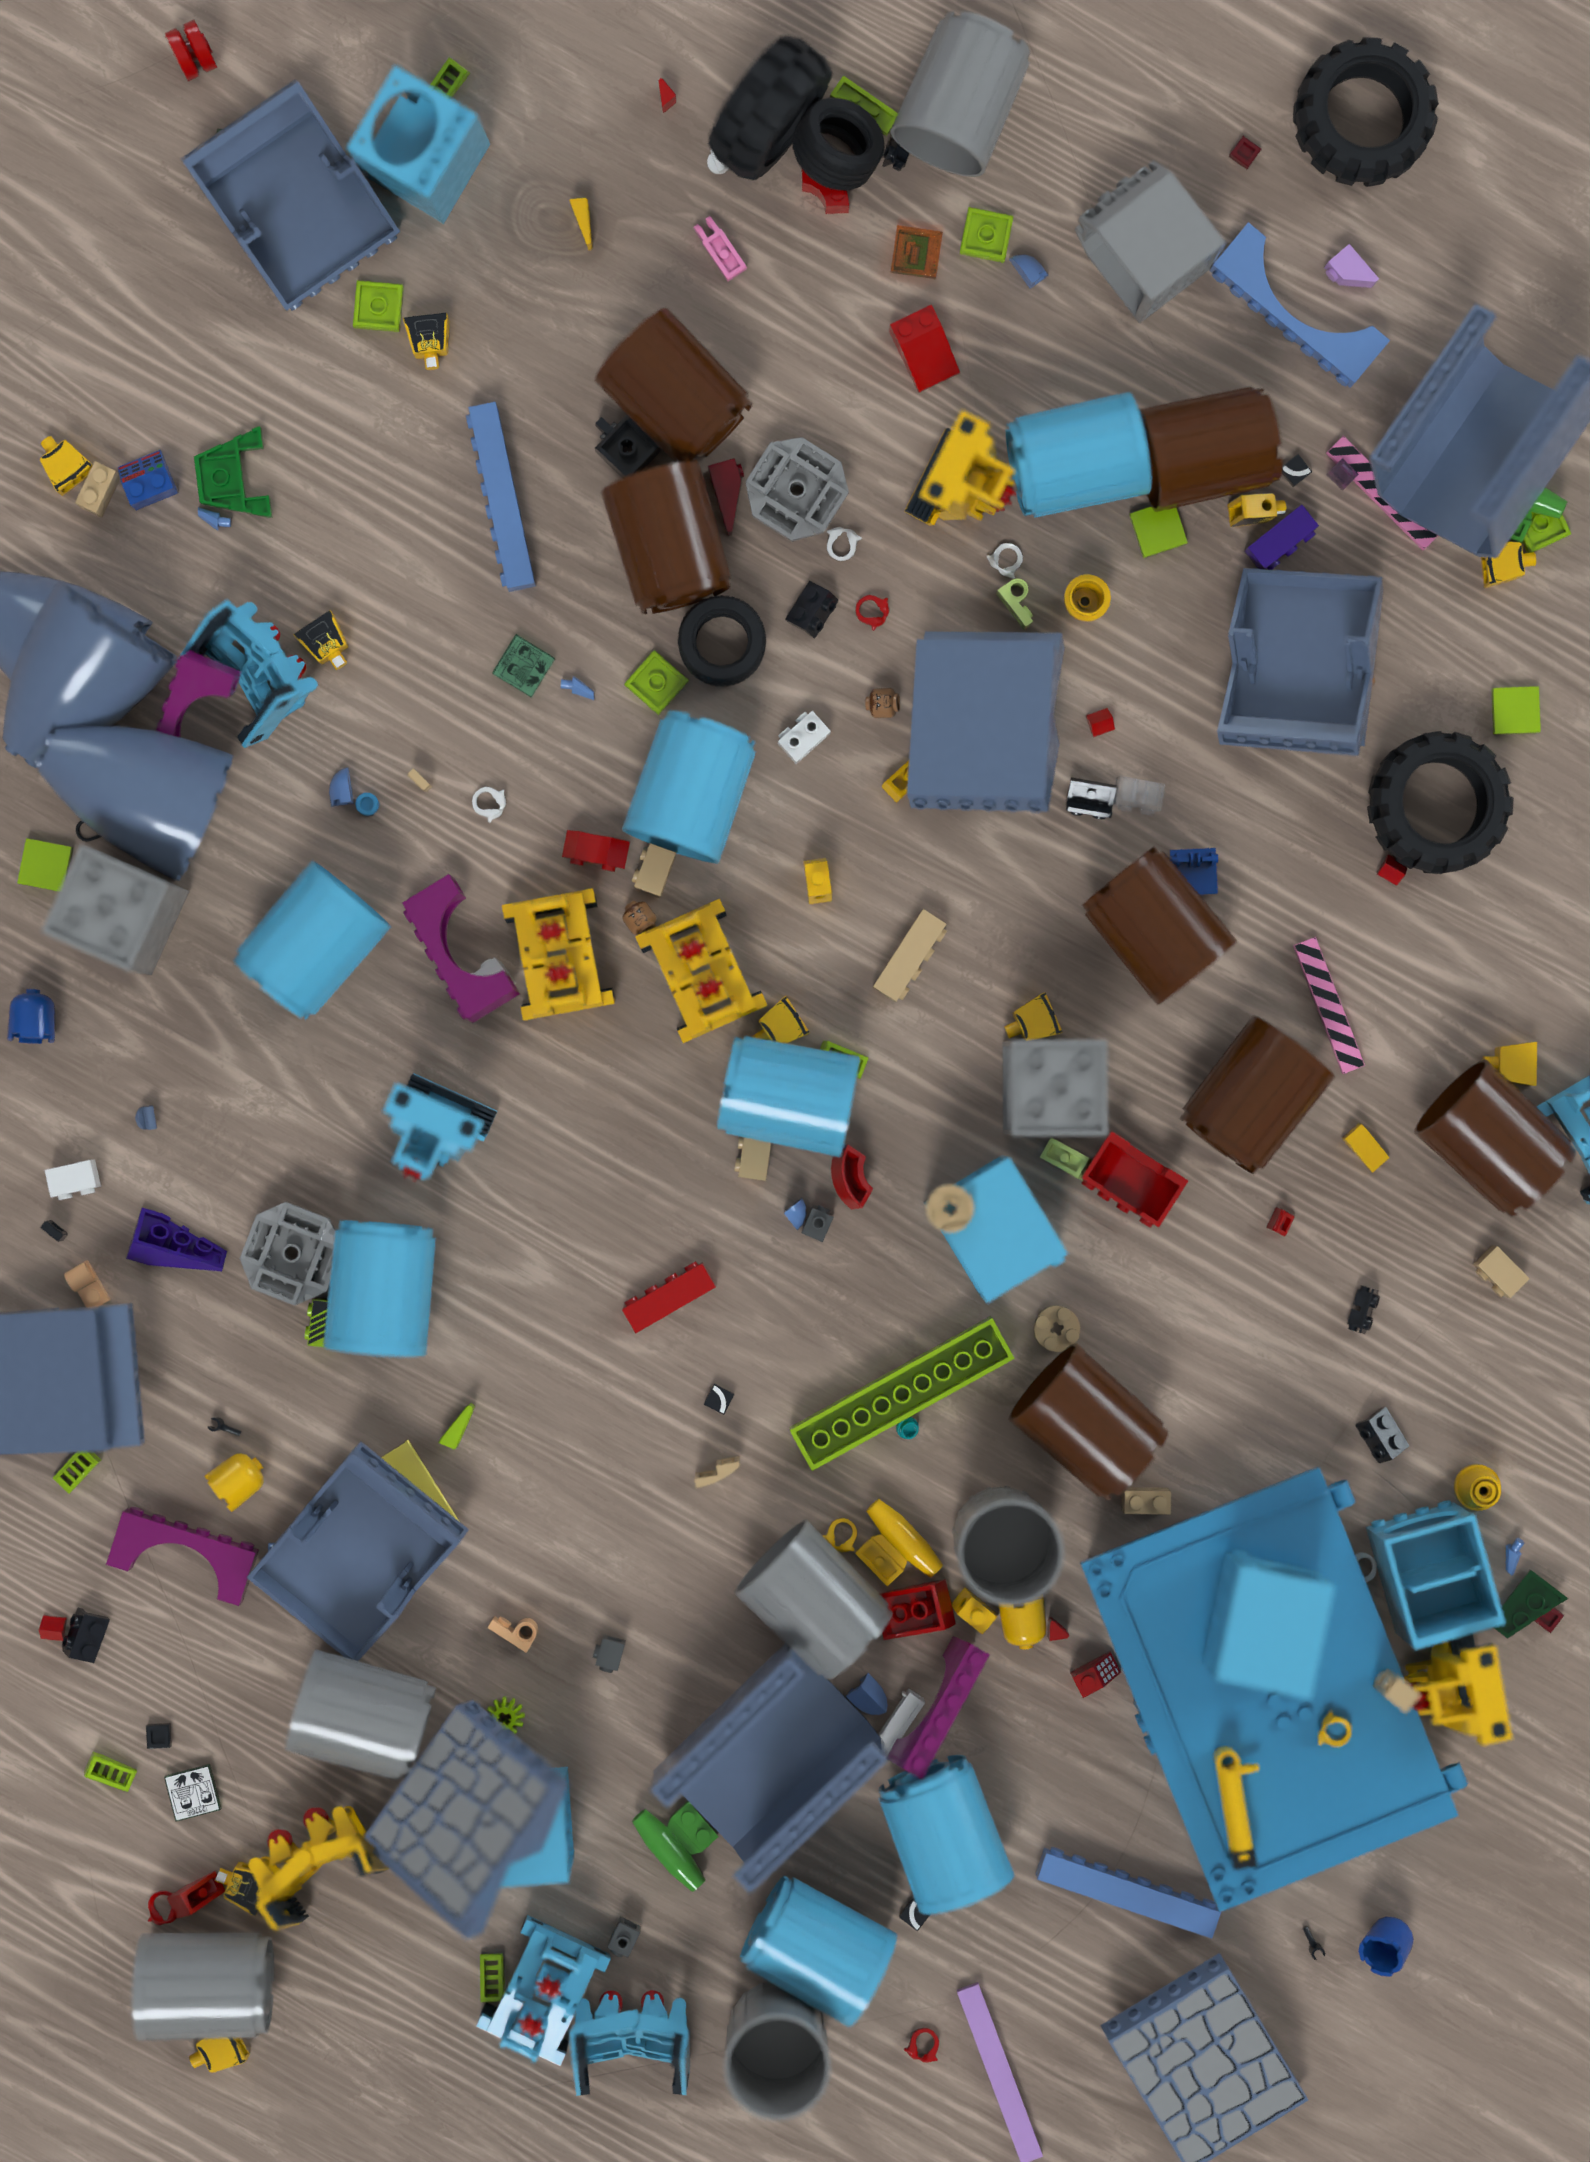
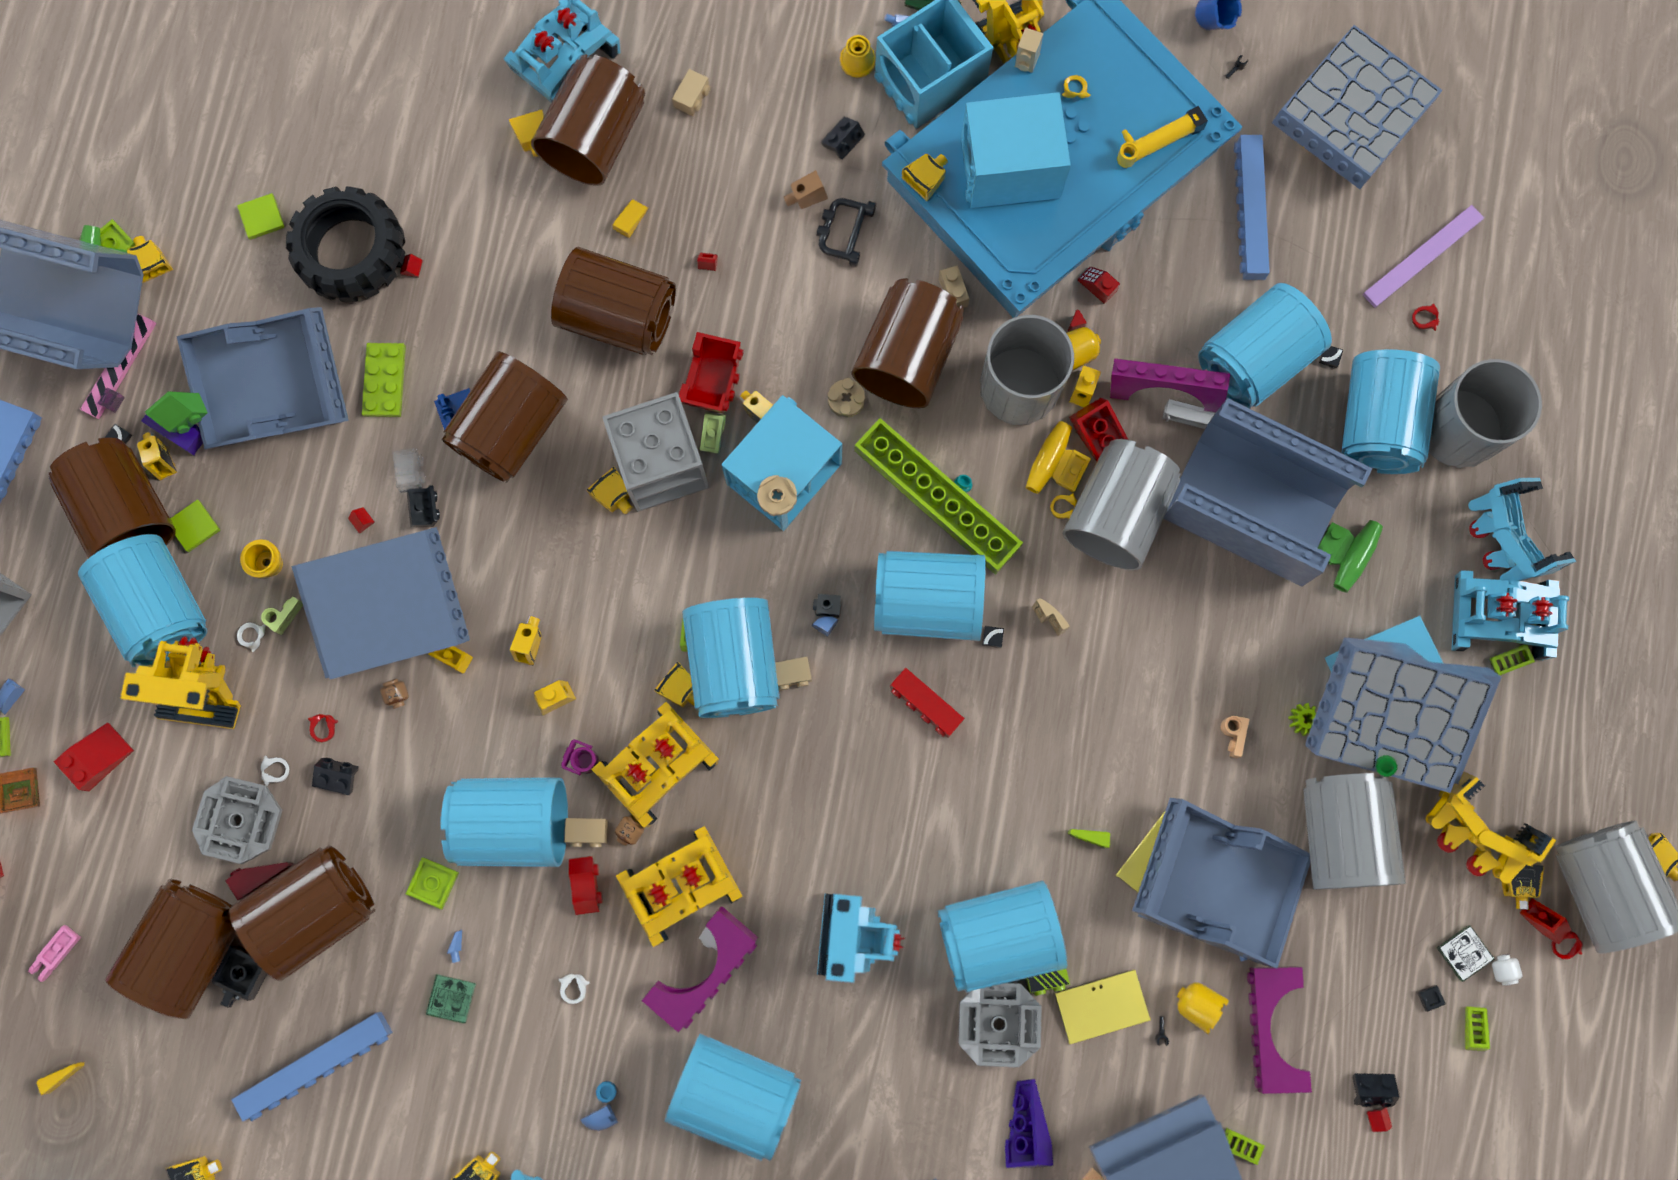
camera: 110 degrees left, 10 degrees down
(159, 1830) = (1507, 970): none -> white head
(269, 1371) = (1098, 1011): none -> light yellow container
(416, 1777) = (1386, 765): none -> green tile
(419, 780) = (572, 1053): tan tile -> none
(609, 1653) = (1224, 654): dark grey brick -> none
(624, 1937) = (1438, 567): dark grey brick -> none
(714, 608) = (352, 833): black tyre -> none
(735, 891) = (581, 759): none -> magenta piece
(784, 1343) = (930, 595): none -> medium azure container
(803, 737) = (441, 747): white brick -> none
(849, 1177) = (783, 591): red brick -> none
(869, 1696) = (1180, 444): medium blue brick -> none
(883, 866) = (526, 641): none -> yellow torso
(909, 955) = (591, 605): tan brick -> none
(1067, 1225) = (755, 405): none -> yellow torso
(1261, 797) = (383, 380): none -> lime plate
(1282, 1513) = (925, 174): none -> yellow torso
(1288, 1384) = (829, 215): none -> black bar
(1291, 554) = (177, 411): none -> bright green slope
(1325, 1377) = (806, 191): none -> medium nougat torso
(1328, 1005) = (528, 280): tile -> none
(1367, 1301) = (746, 180): black hinge -> none

